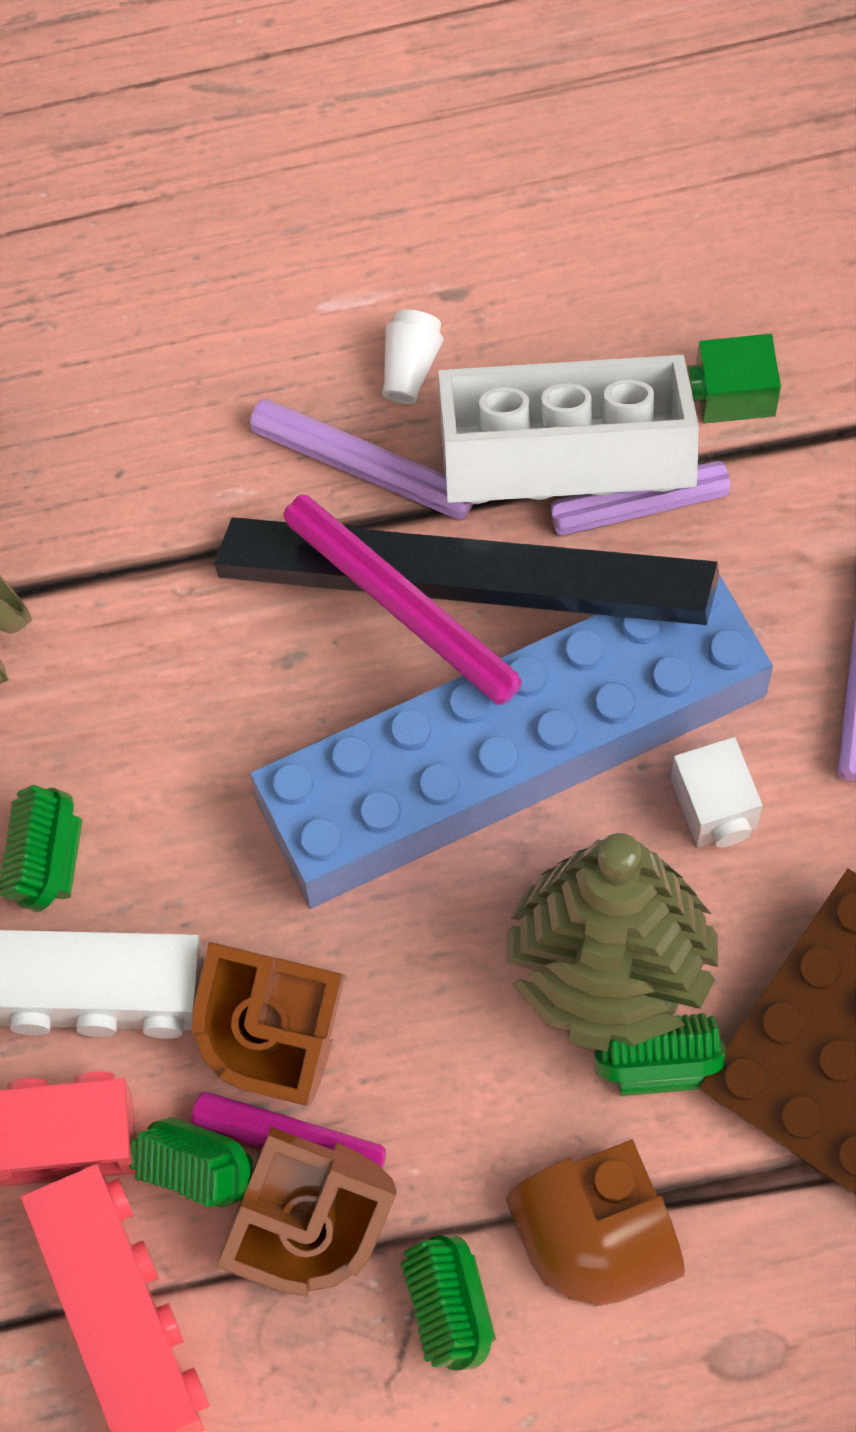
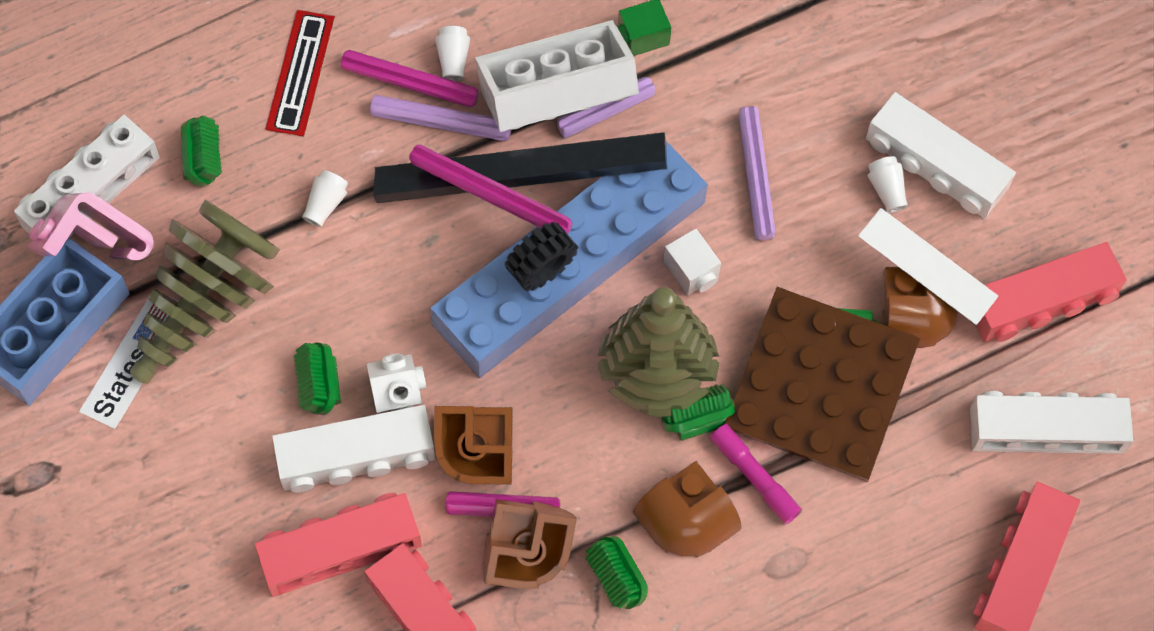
camera: 20 degrees left, 0 degrees up
(136, 548) = (324, 197): none -> white cone
(156, 338) = (300, 73): none -> sticker
(162, 886) = (396, 382): none -> white brick
(191, 1162) = (455, 530): green piece -> none
(329, 383) = (409, 78): none -> dark pink axle
(449, 728) = (541, 256): none -> black tyre
(751, 1222) = (772, 492): none -> dark pink piece

